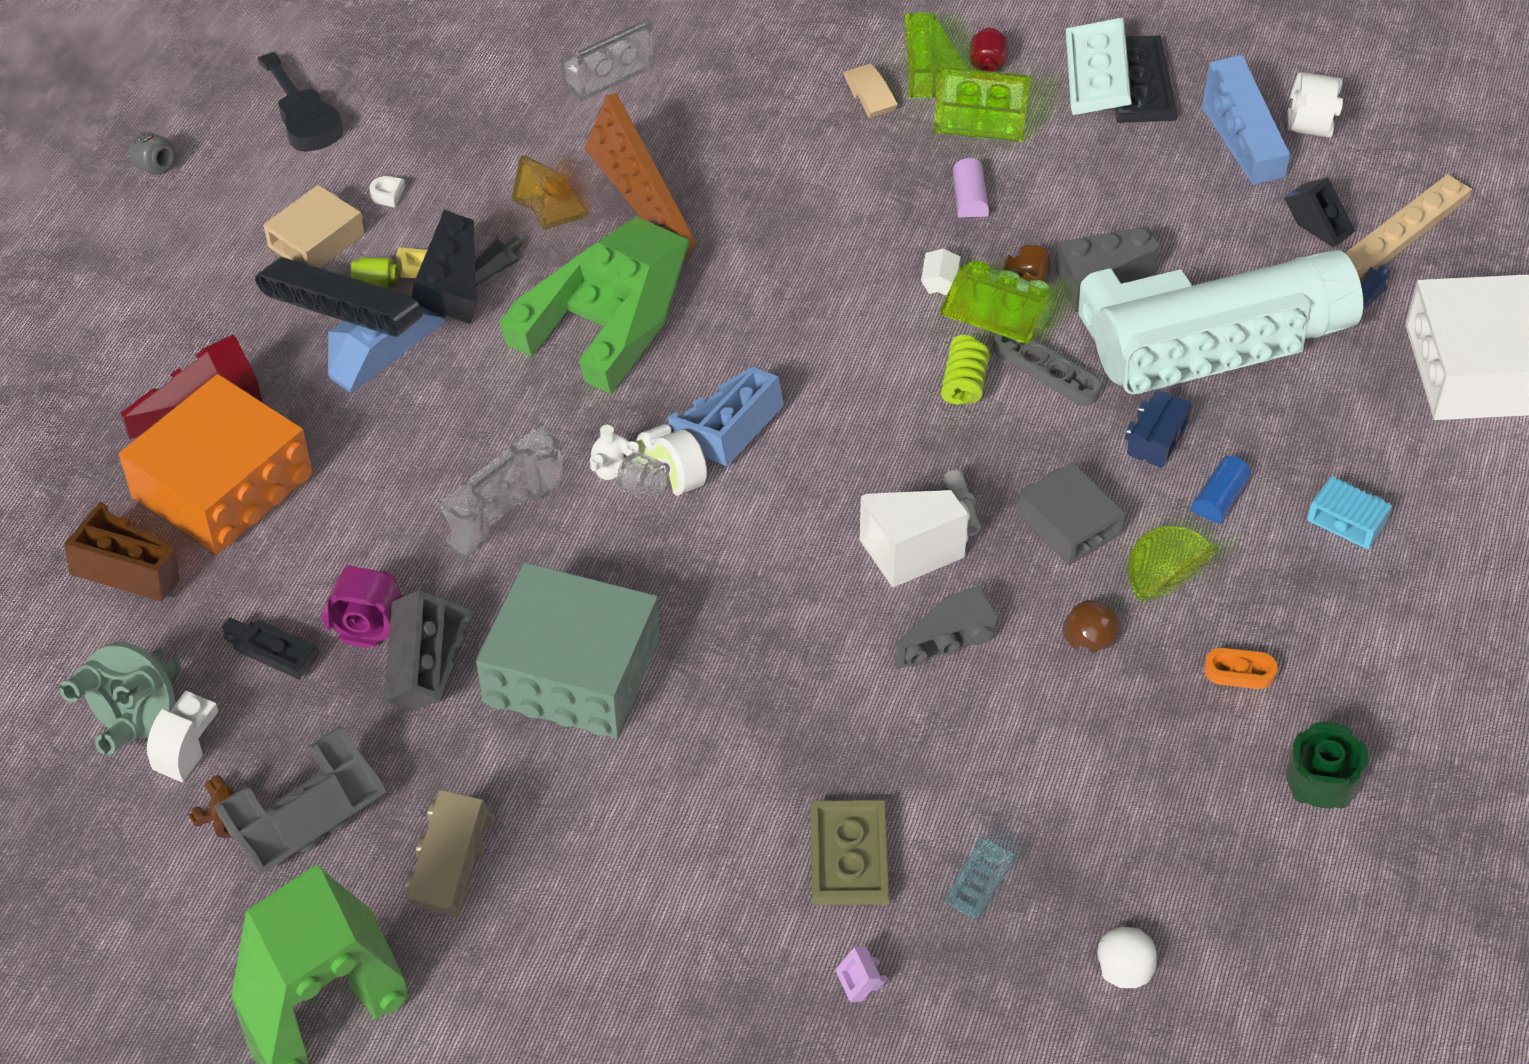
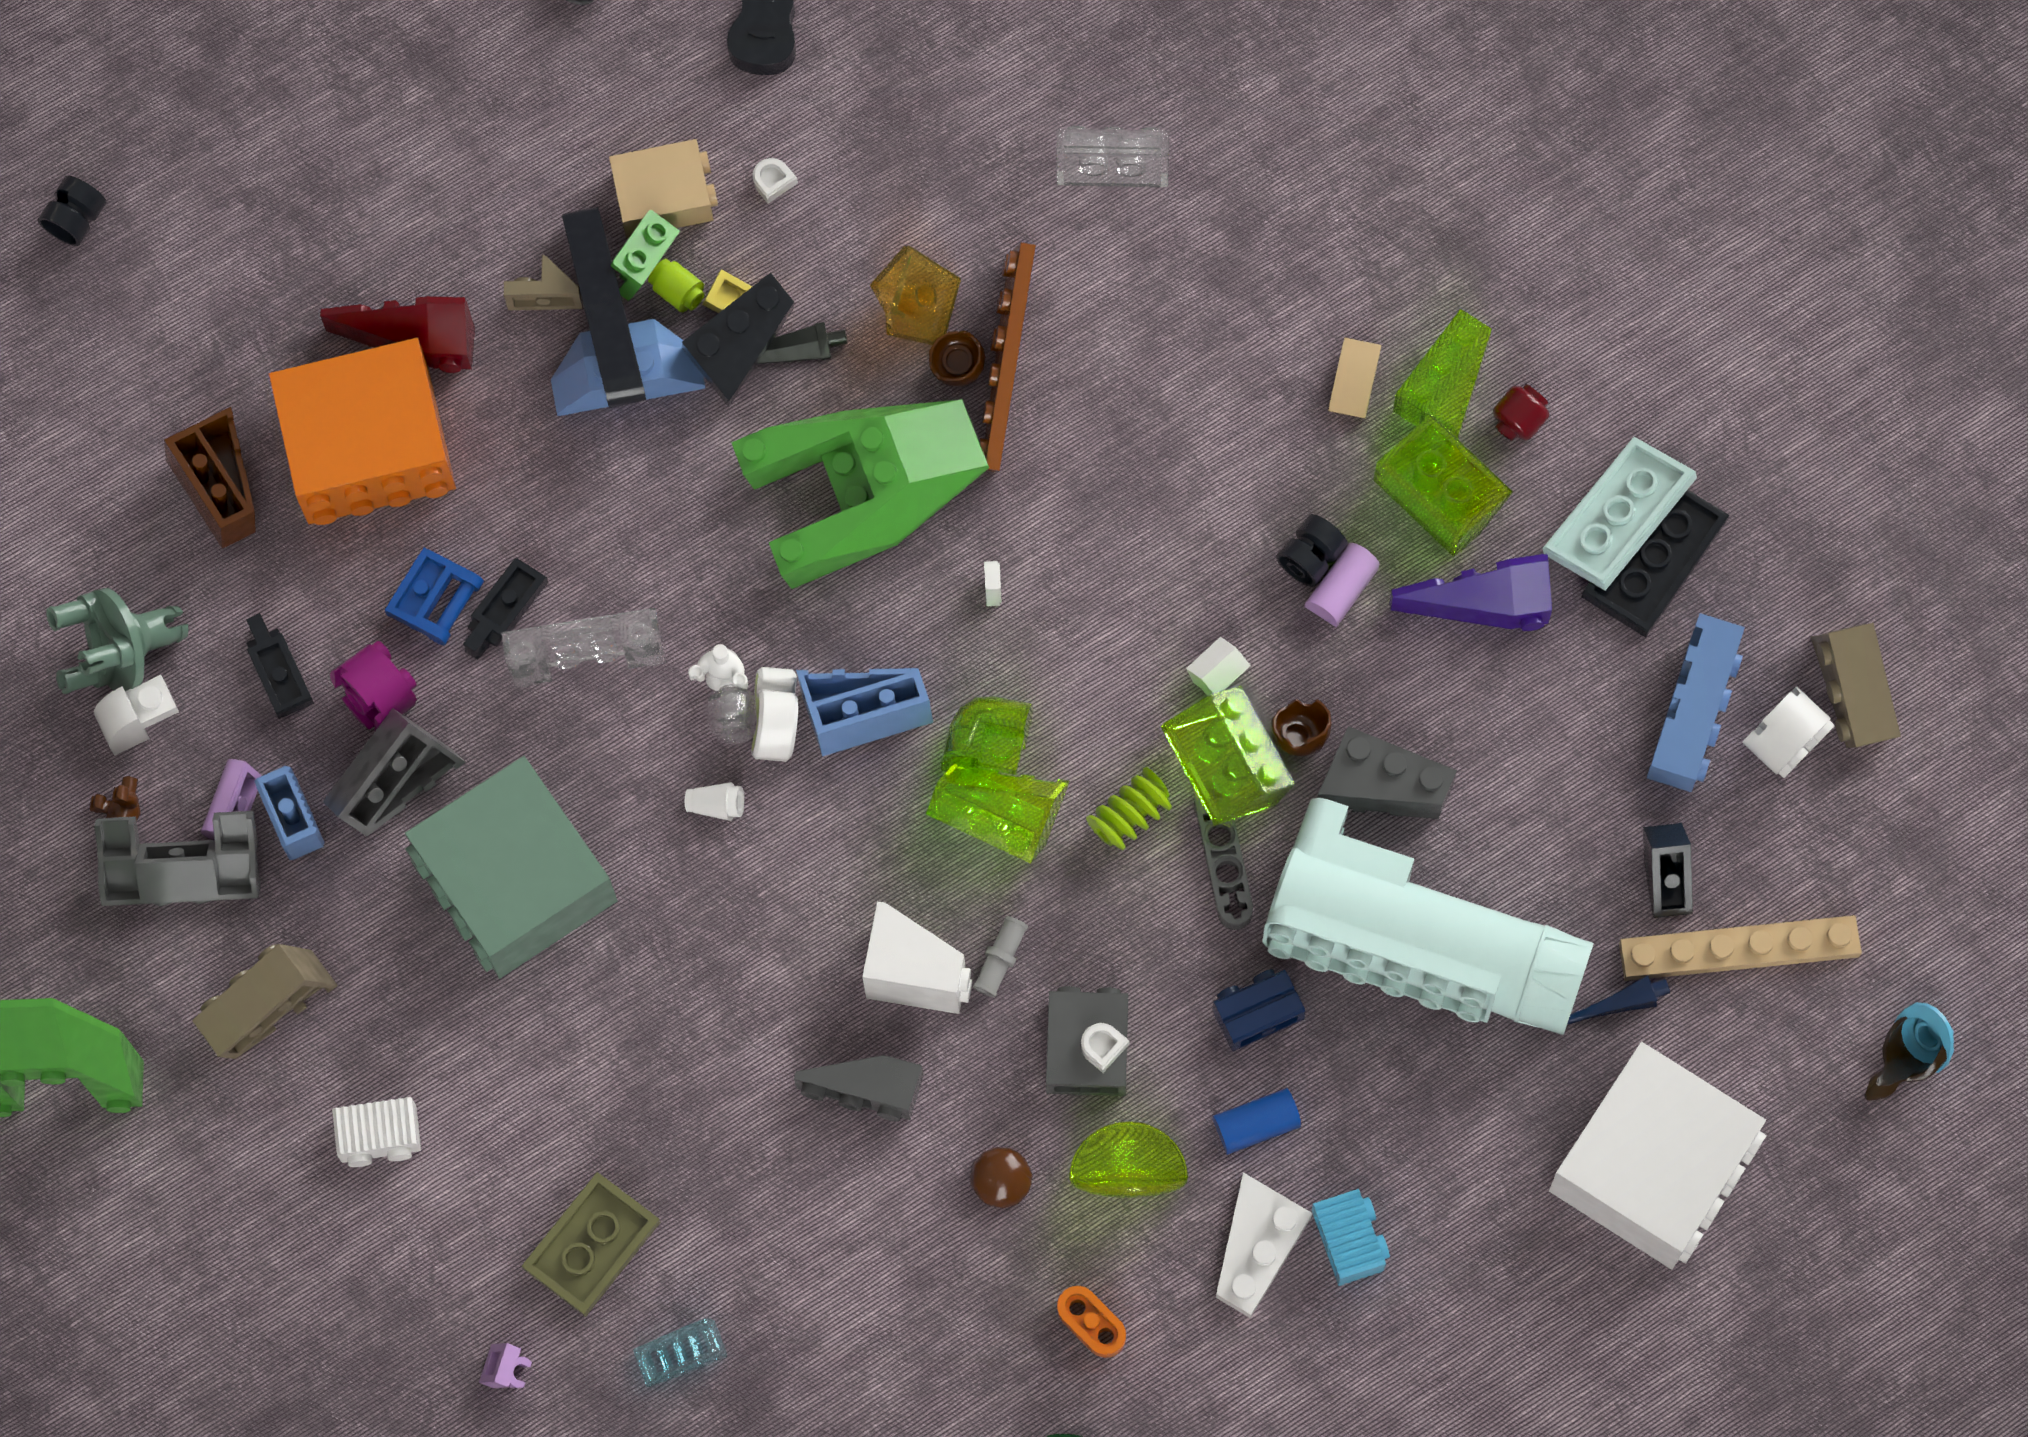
camera: 40 degrees right, 20 degrees up
(282, 323) = (550, 293): none -> dark tan slope
(301, 732) = (234, 792): none -> lavender brick
(338, 252) = (643, 252): none -> bracket
(343, 536) = (424, 588): none -> blue plate
(366, 721) = (289, 812): none -> medium blue brick
(414, 513) = (503, 606): none -> black hinge
(607, 208) = (957, 358): none -> reddish brown hair
(617, 884) = (376, 1131): none -> white brick
(678, 533) = (716, 801): none -> white cone
(748, 309) = (992, 583): none -> white tile
(828, 384) = (988, 734): none -> clear neon green brick
(882, 414) = (999, 808): none -> clear neon green wedge
(936, 179) = (1315, 545): none -> black wheel
(1072, 140) = (1503, 598): none -> dark purple wedge
(1087, 497) = (1102, 1045): none -> white tile
(1297, 557) = (1258, 1244): none -> white wing
(1319, 52) = (1857, 685): none -> dark tan wedge

